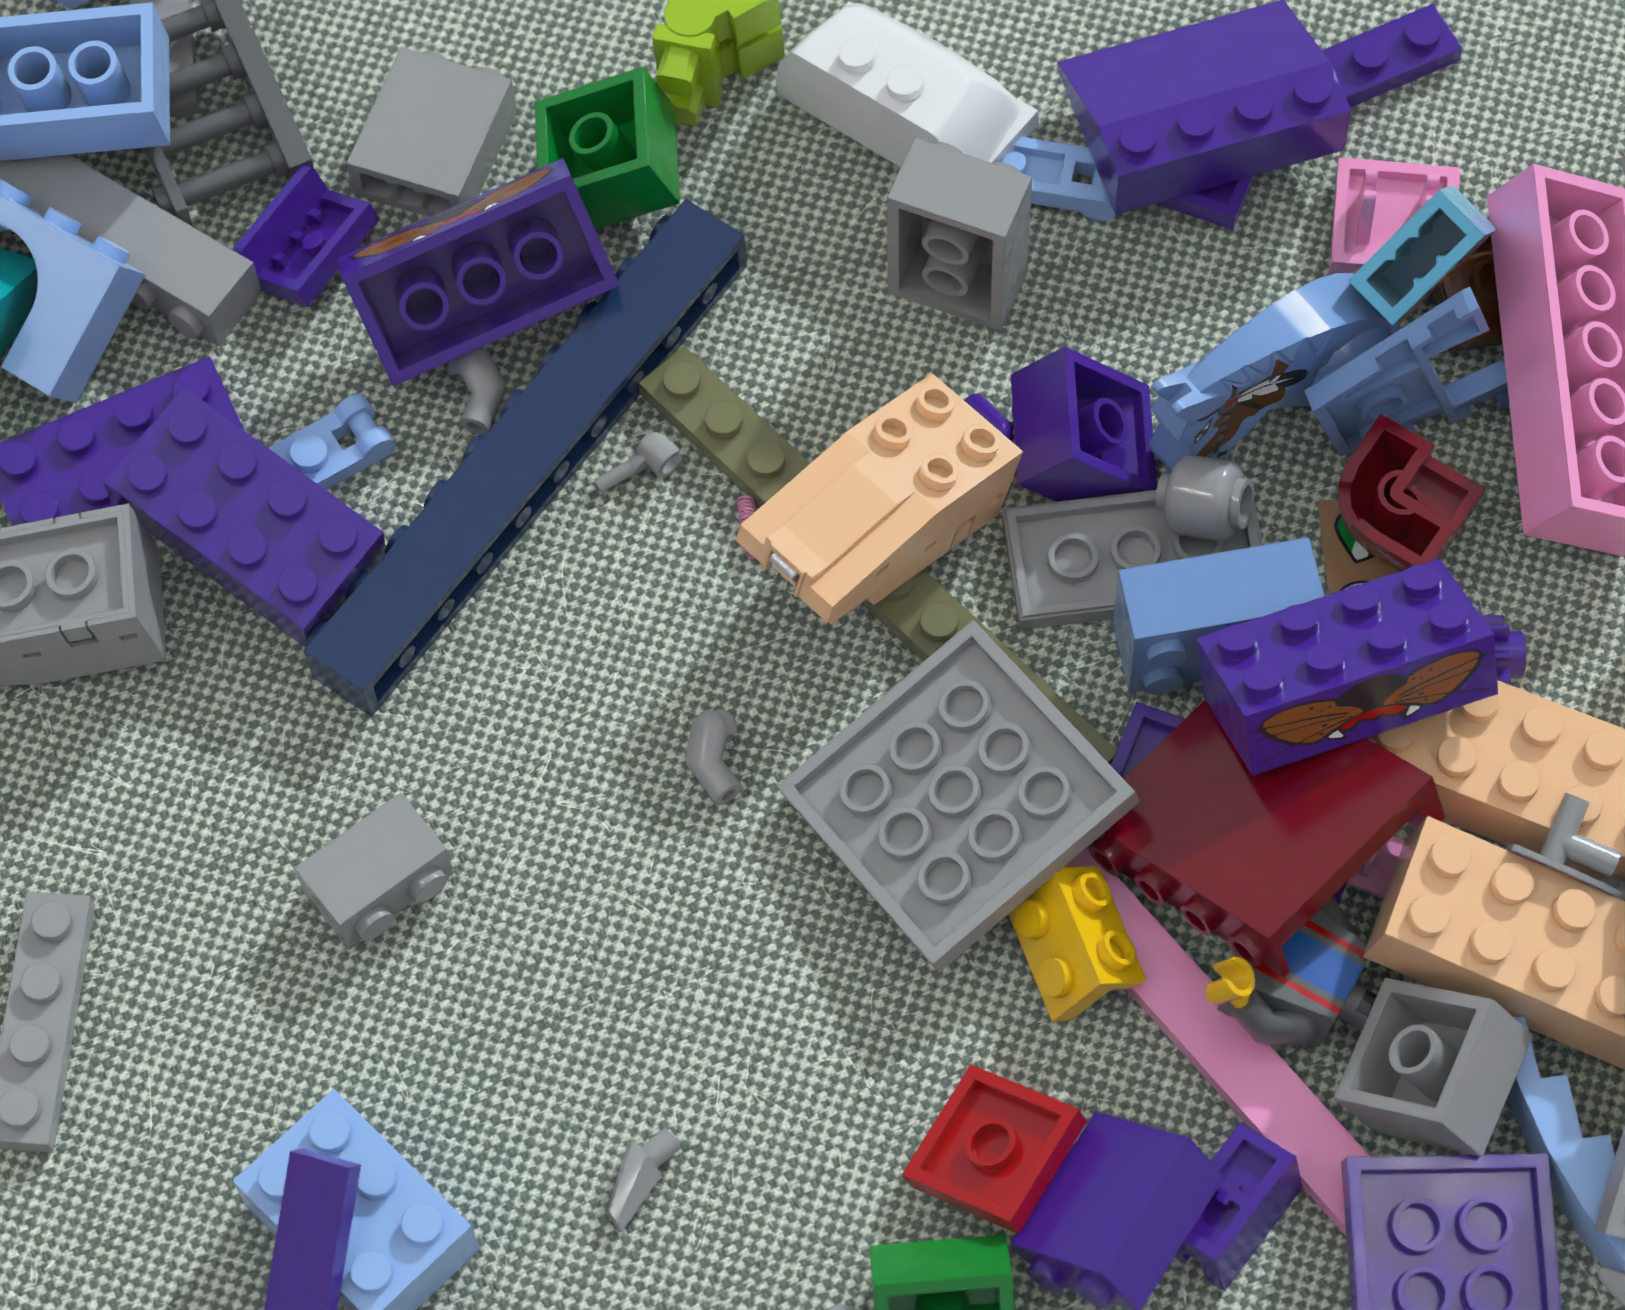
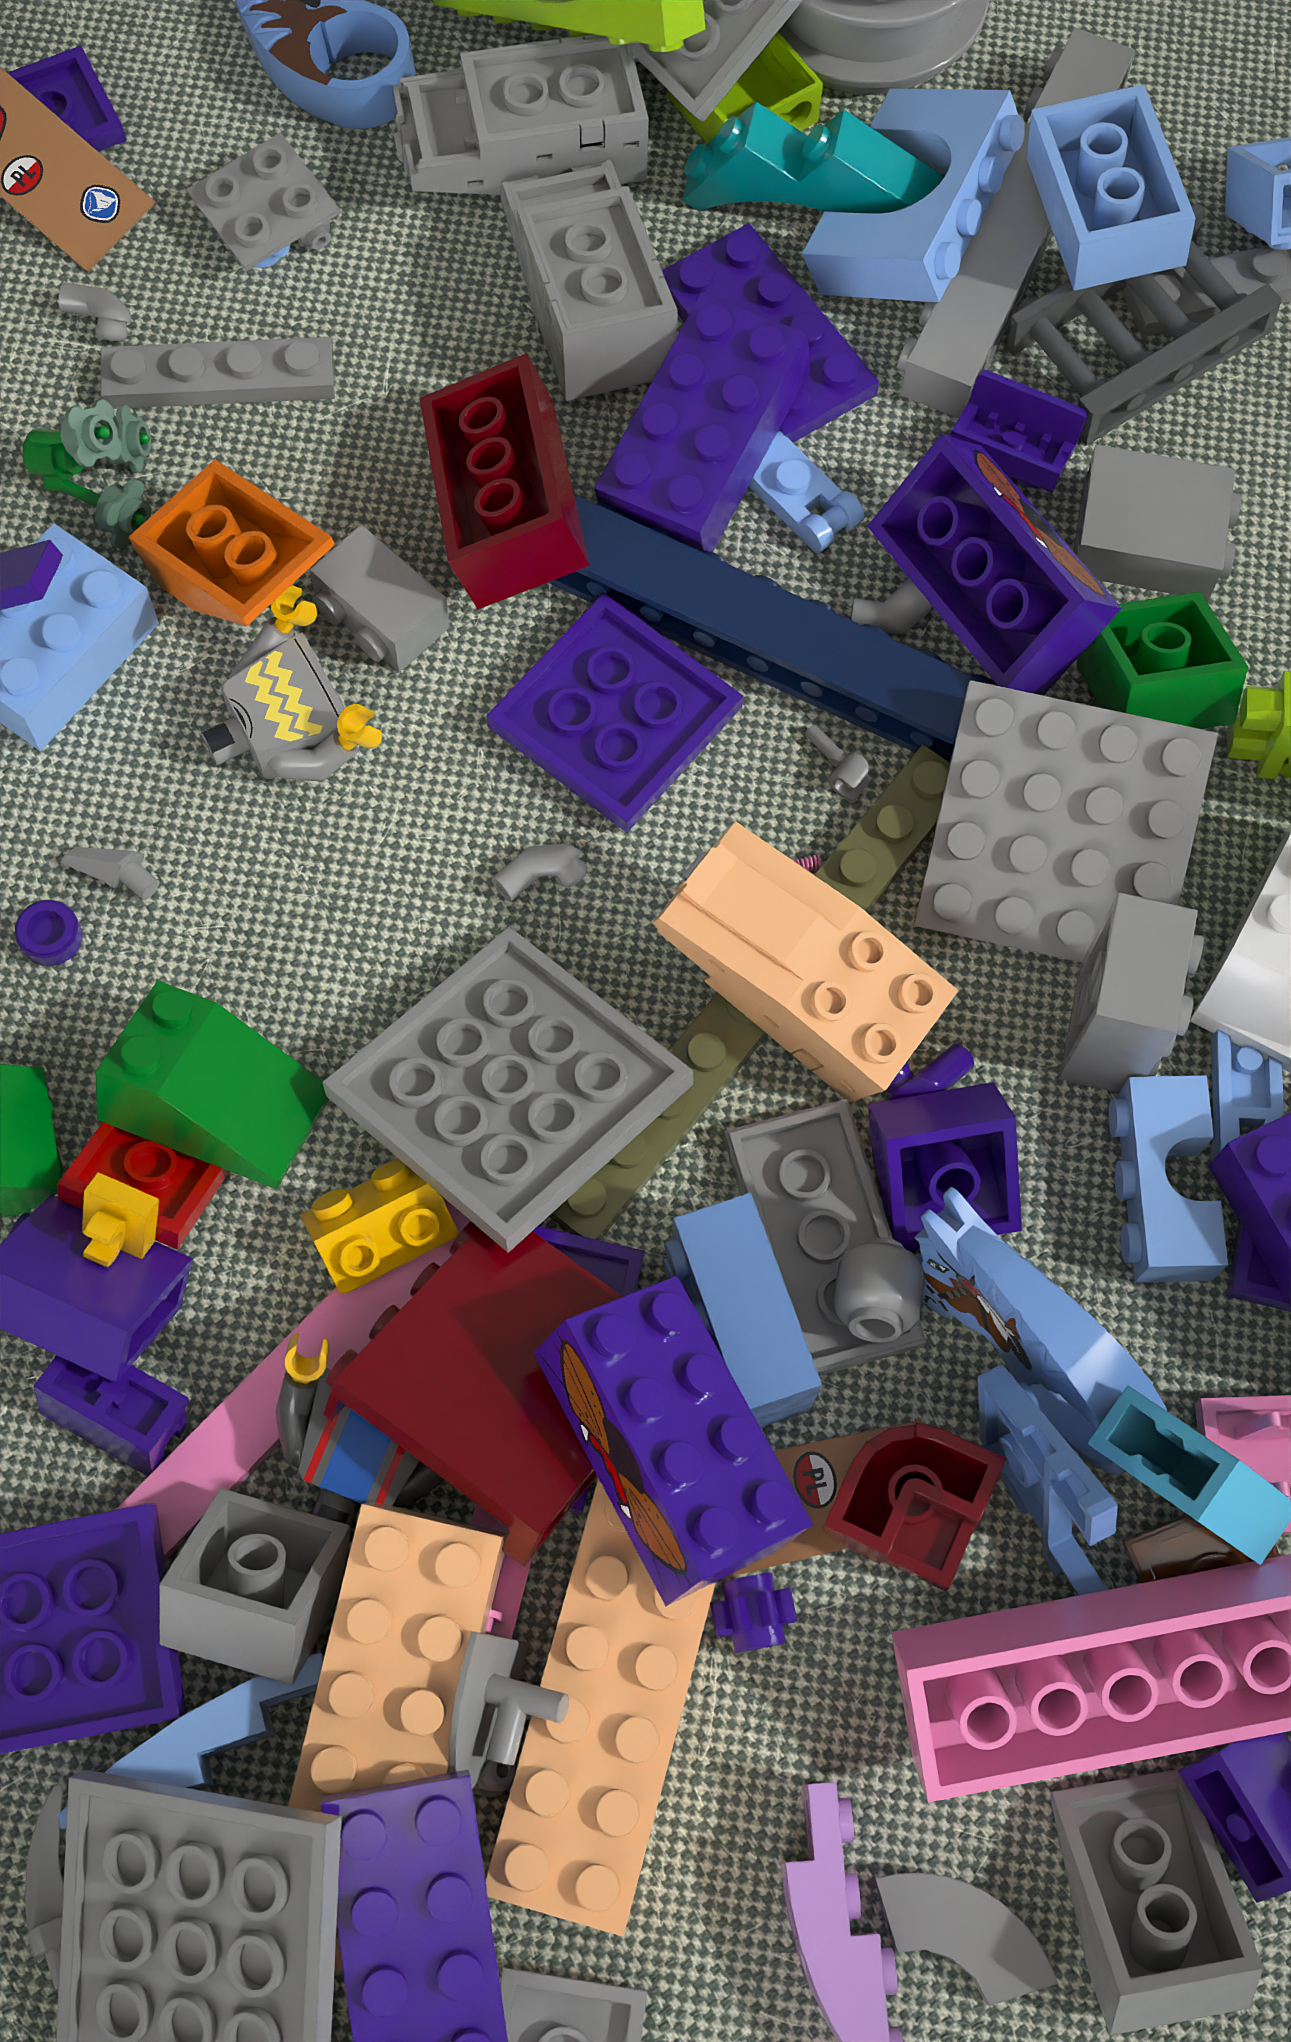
camera: 75 degrees right, 5 degrees up
(140, 1123) = (83, 439): none -> sand green plant
(281, 711) = (502, 482): none -> dark red brick
(309, 992) = (227, 546): none -> orange slope
(492, 973) = (287, 706): none -> light grey torso
(549, 660) = (615, 712): none -> dark purple plate
(702, 1248) = (48, 932): none -> dark purple tile
(762, 267) = (1056, 816): none -> light grey plate
(914, 1084) = (208, 1087): none -> green slope
(1062, 1158) = (117, 1220): none -> yellow tile
(1166, 265) = (1165, 1232): none -> light blue arch

